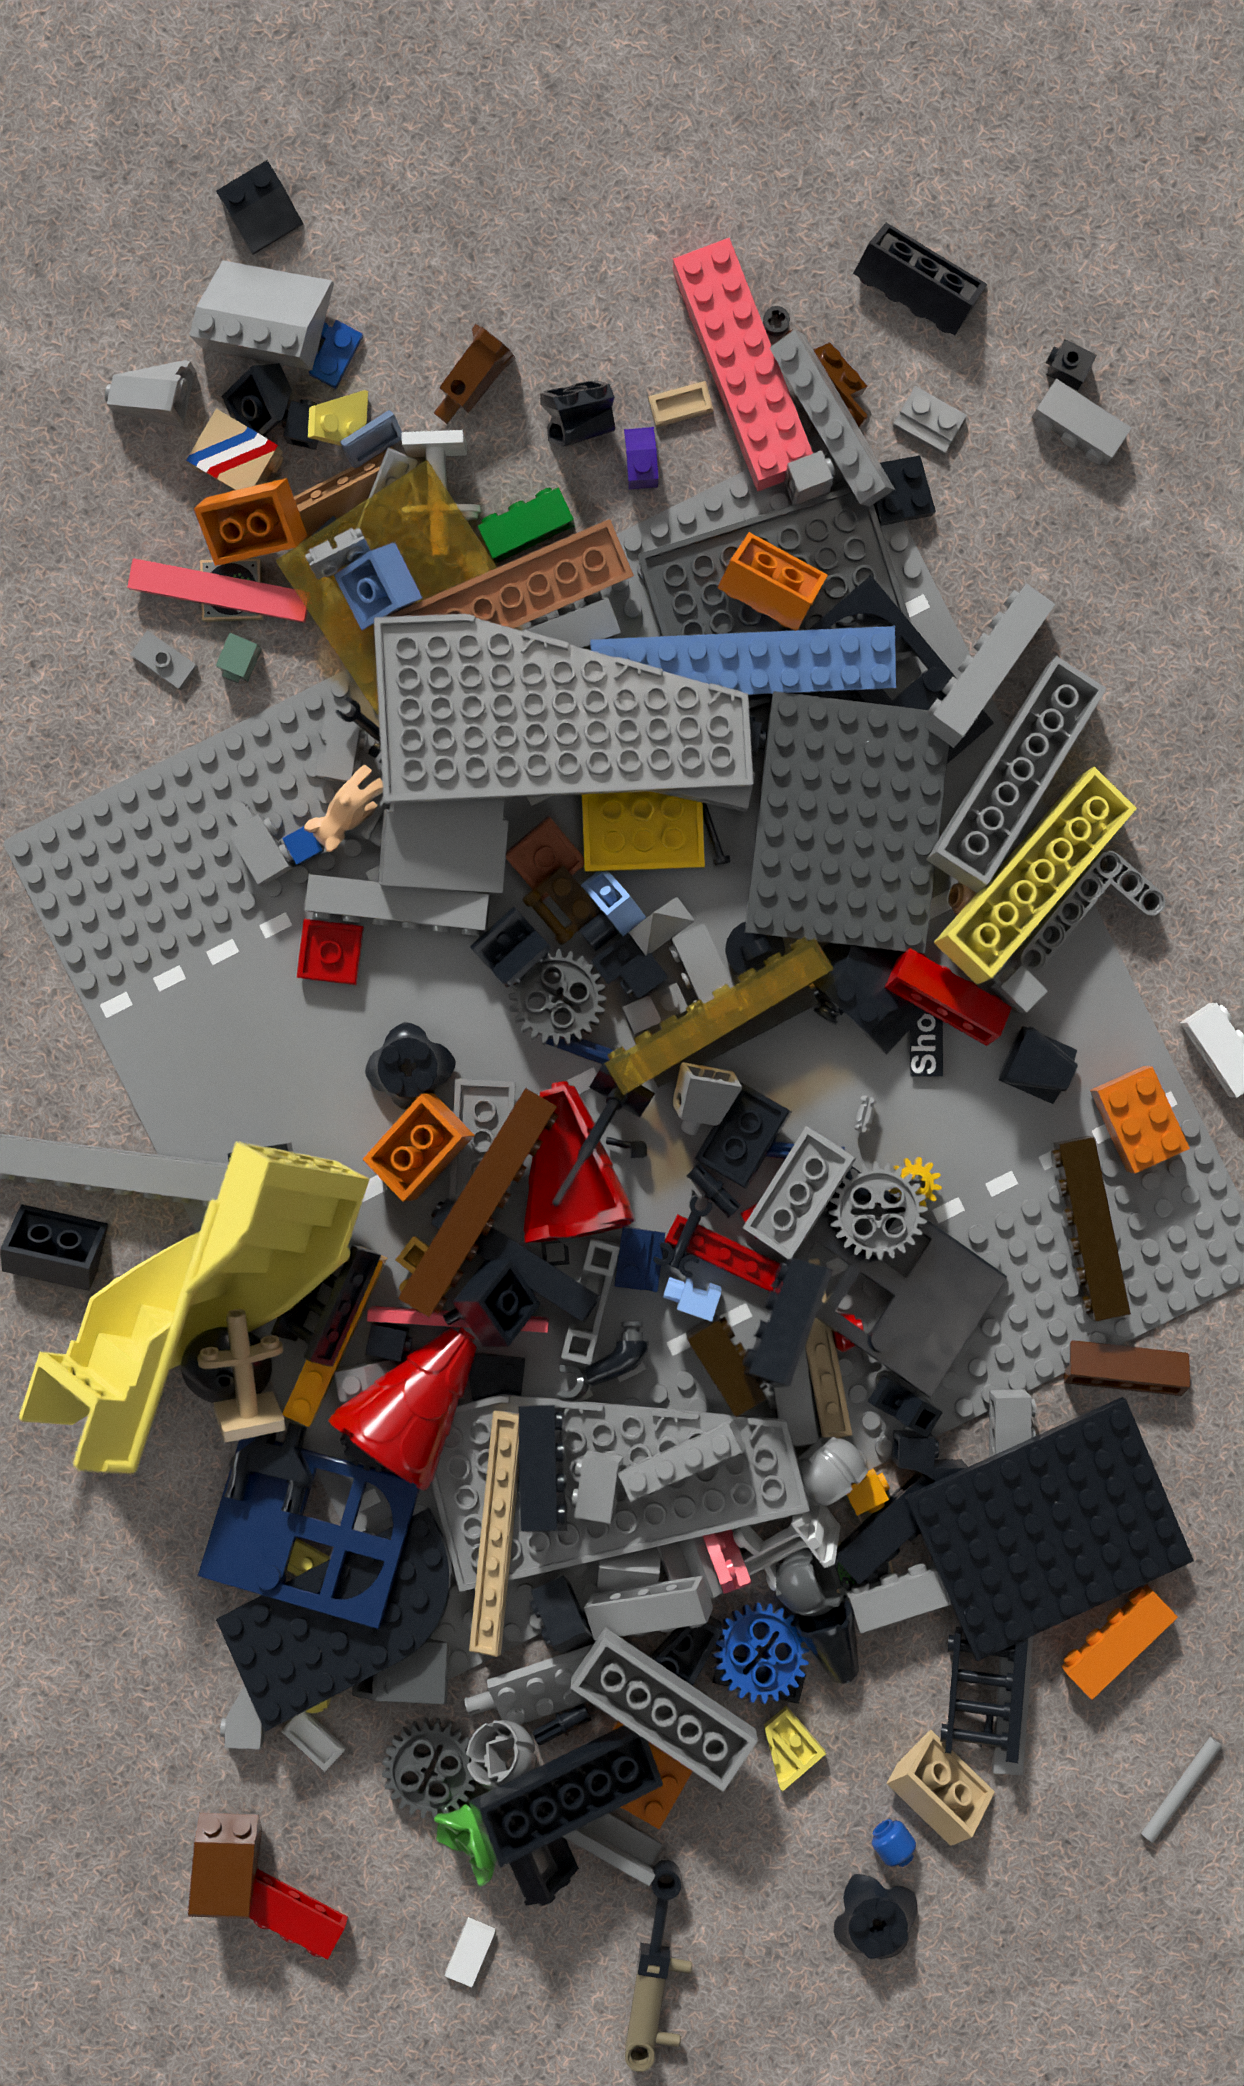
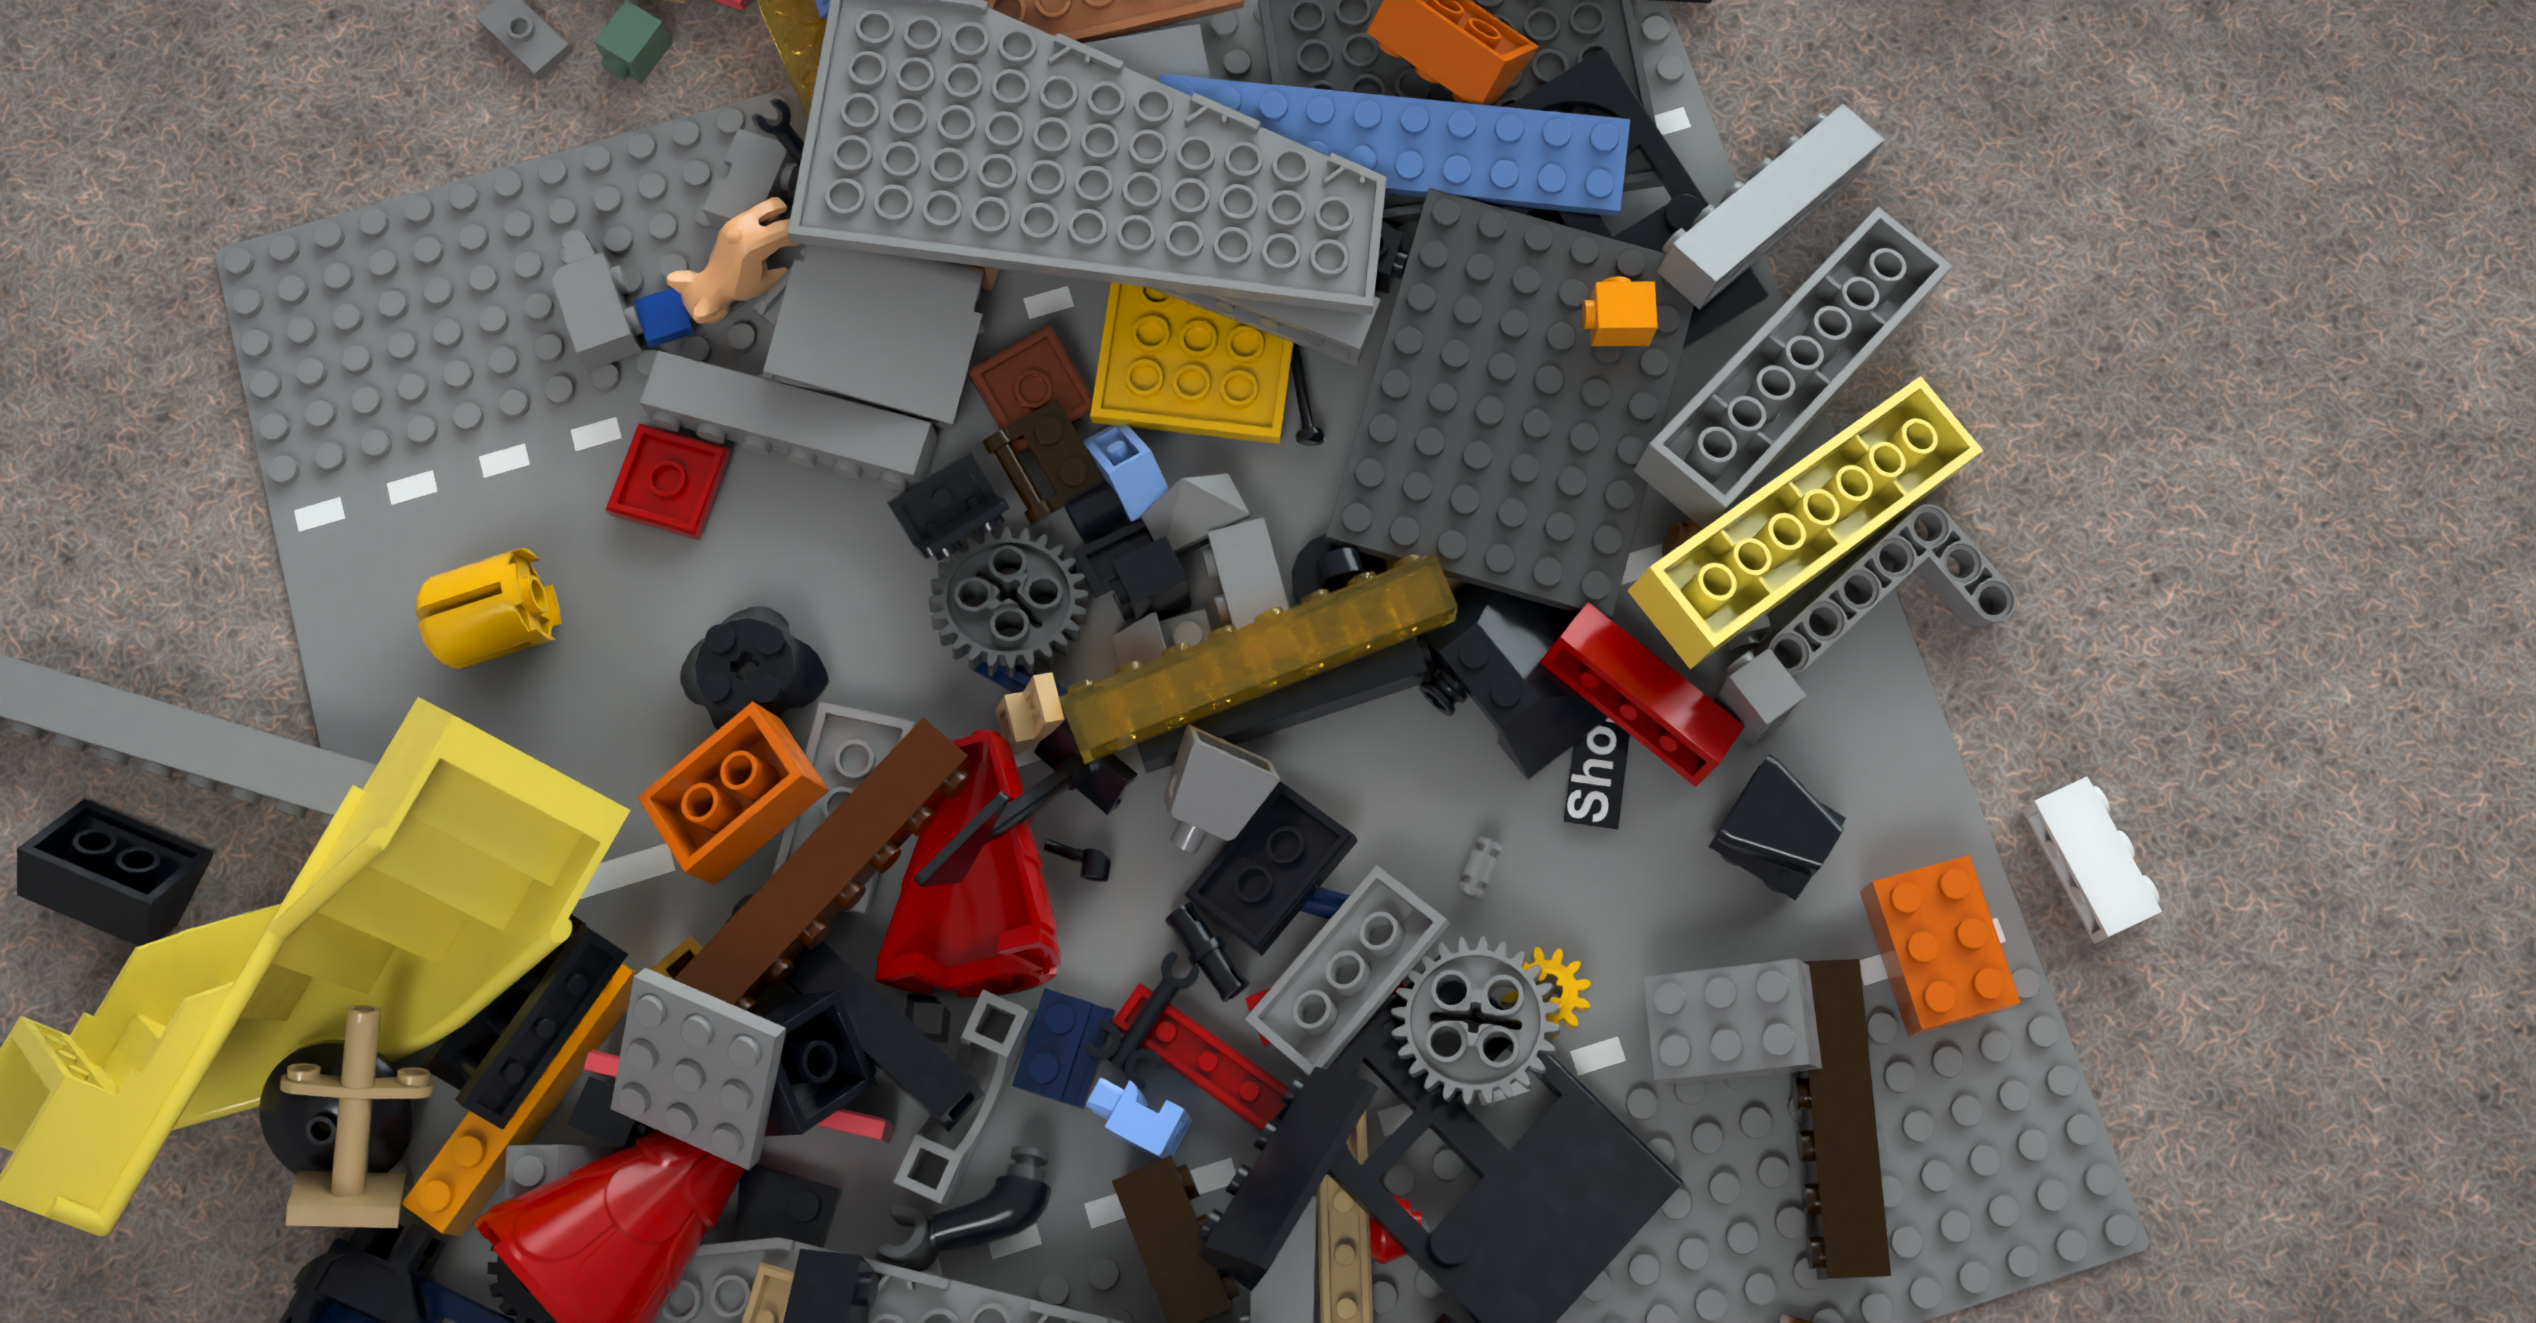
camera: 10 degrees right, 15 degrees down
(249, 1069) = (486, 610): none -> yellow cylinder
(442, 1321) = (697, 1068): none -> light grey plate
(584, 1068) = (1030, 714): none -> tan slope
(906, 763) = (1621, 313): none -> light orange brick
(1025, 1187) = (1732, 1022): none -> light grey brick

